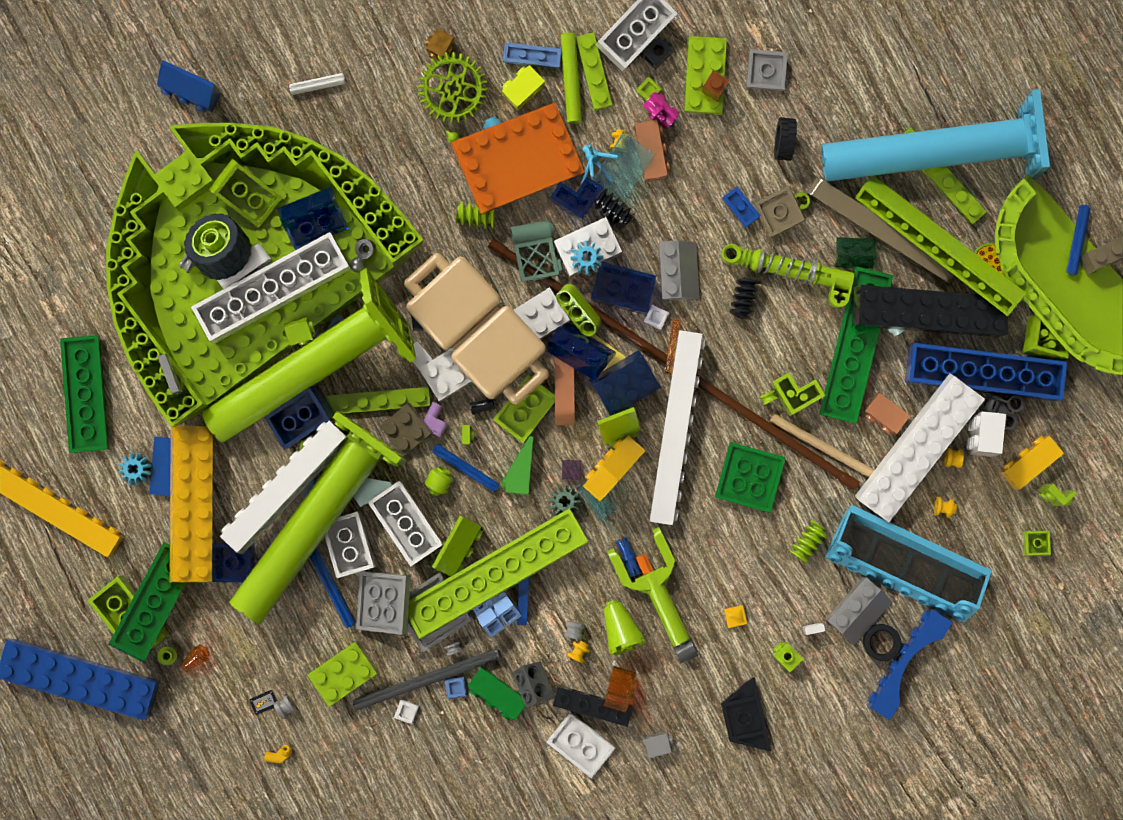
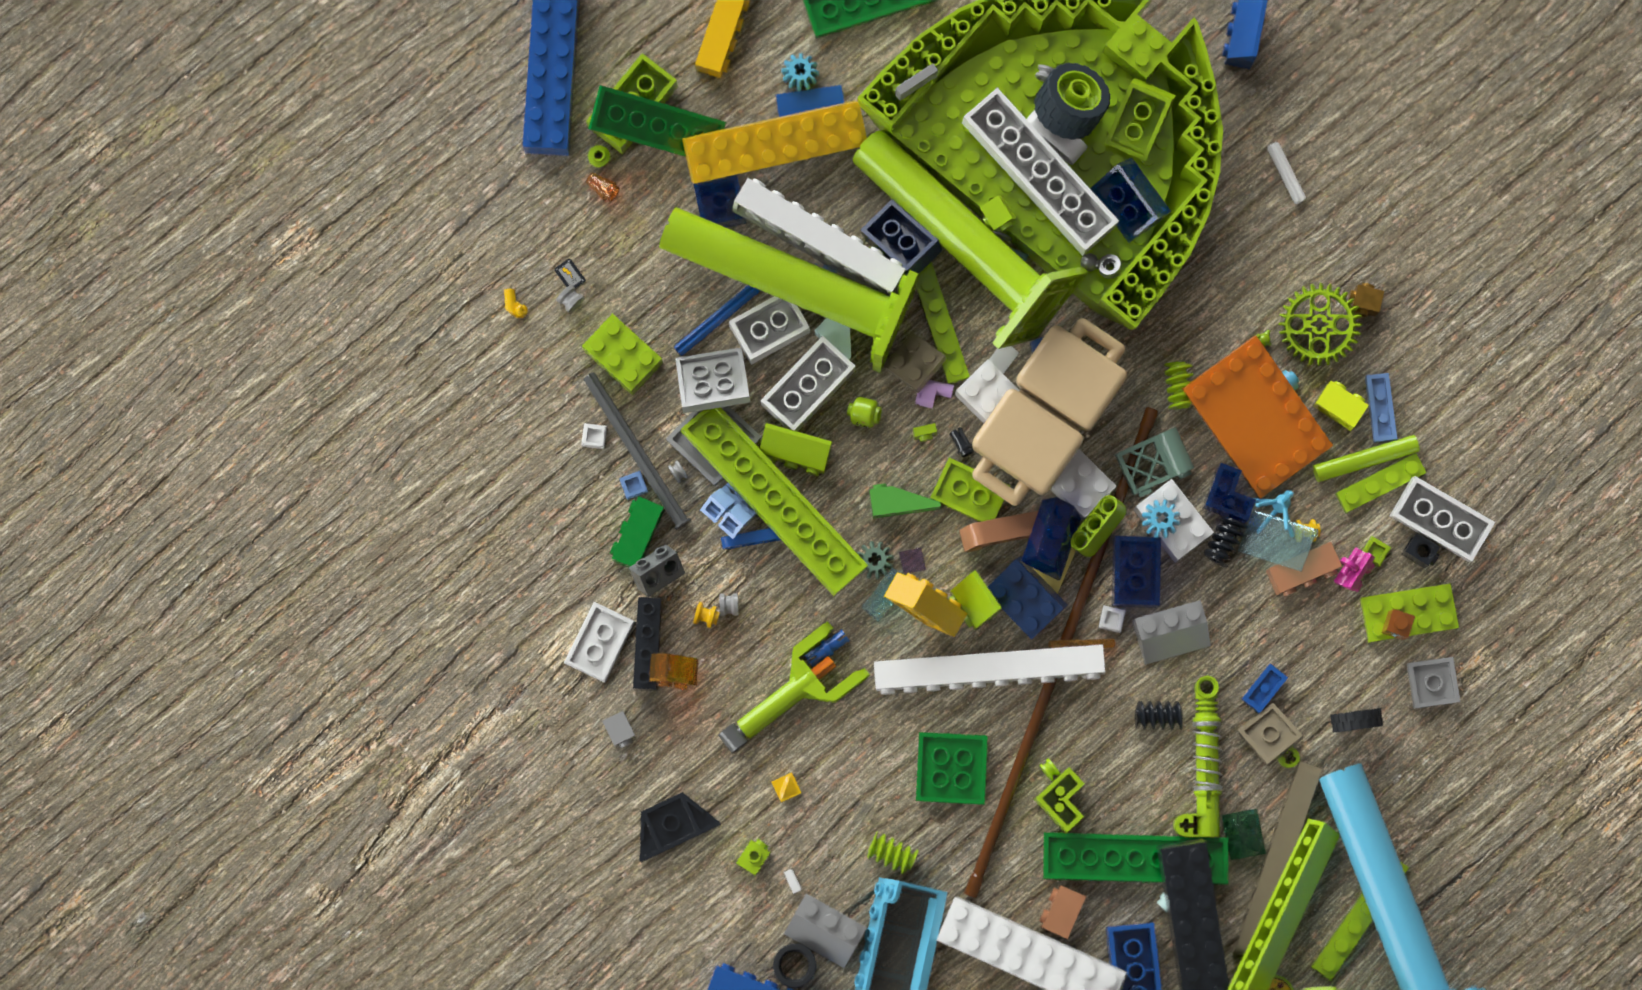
camera: 75 degrees right, 5 degrees down
(466, 468) = (886, 440): blue axle -> none
(621, 629) = (741, 657): lime cone -> none
(821, 445) = (1008, 844): tan piece -> none

